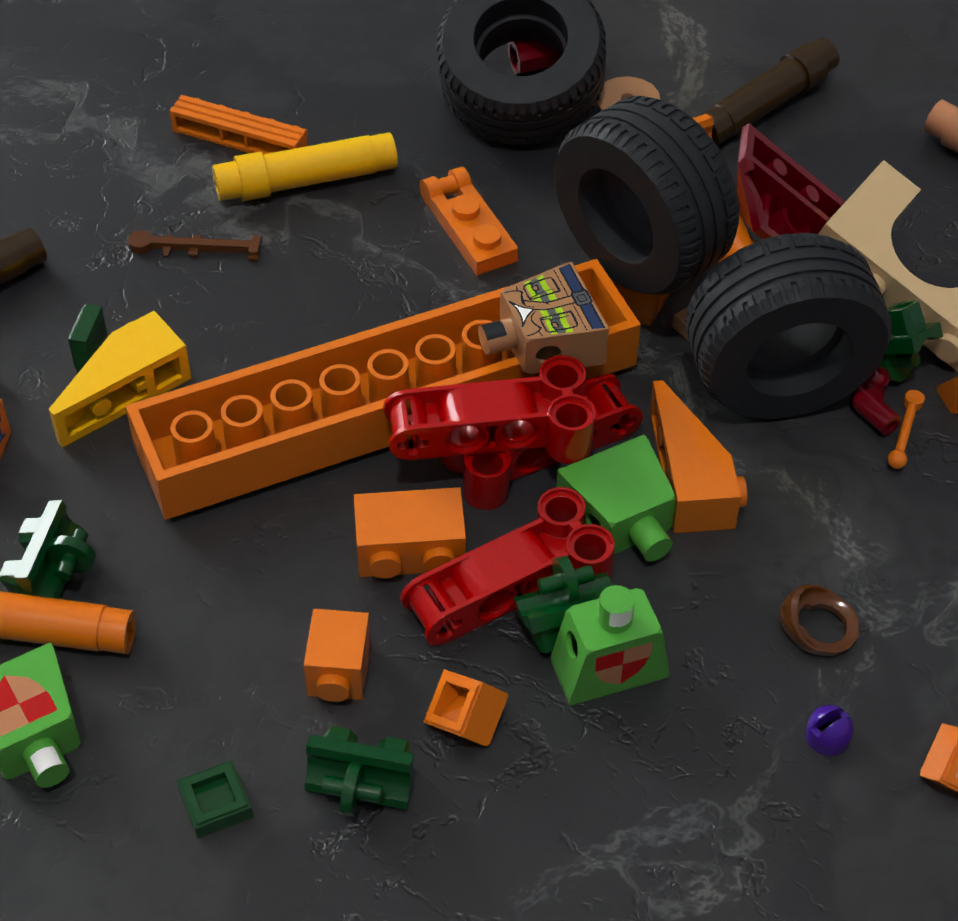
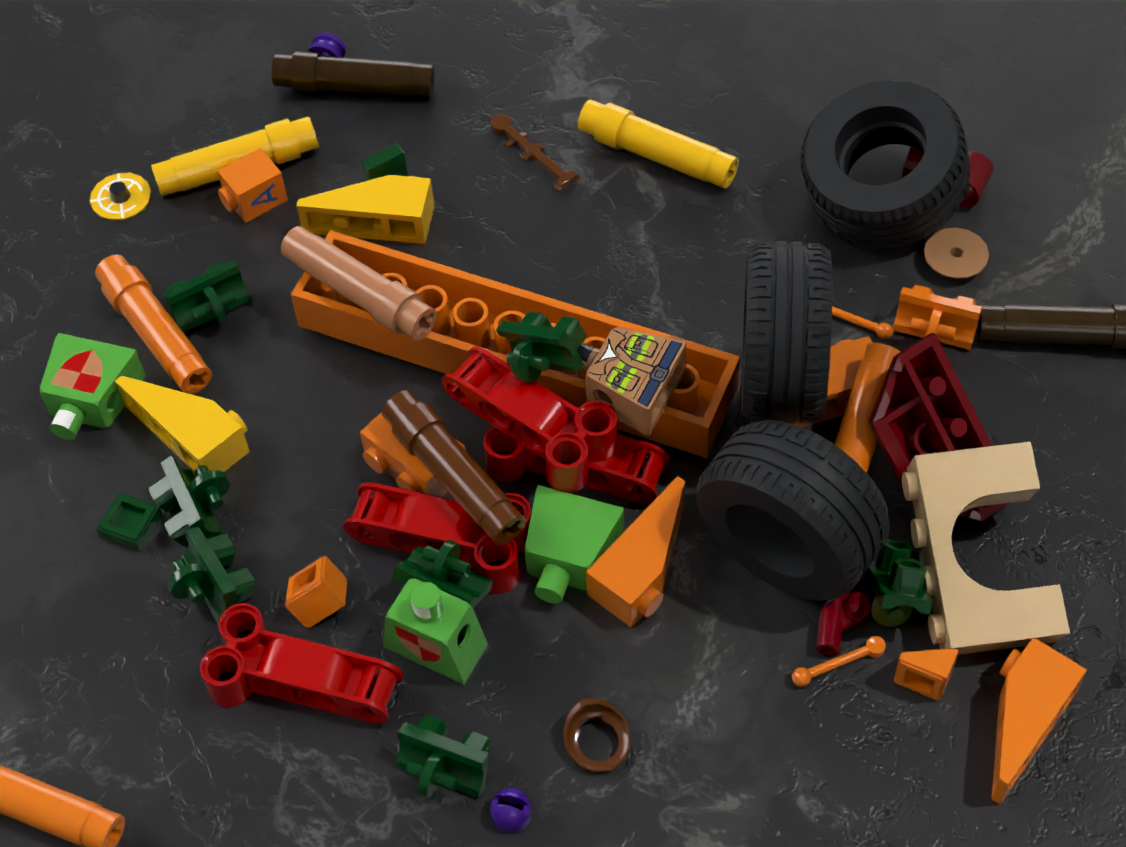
camera: 50 degrees right, 5 degrees up
(177, 672) = (187, 424): none -> yellow slope
(234, 127) = (650, 83): orange piece -> none
(234, 723) = (195, 493): none -> dark green hips
(278, 414) = (387, 301): none -> nougat piece
(337, 655) = (281, 494): orange brick -> none
(427, 496) = (426, 436): none -> reddish brown piece
(459, 349) = (541, 347): none -> dark green hips
(469, 221) = (723, 266): orange plate -> none
(533, 780) = (295, 670): none -> red piece
(739, 738) = (442, 761): none -> dark green hips

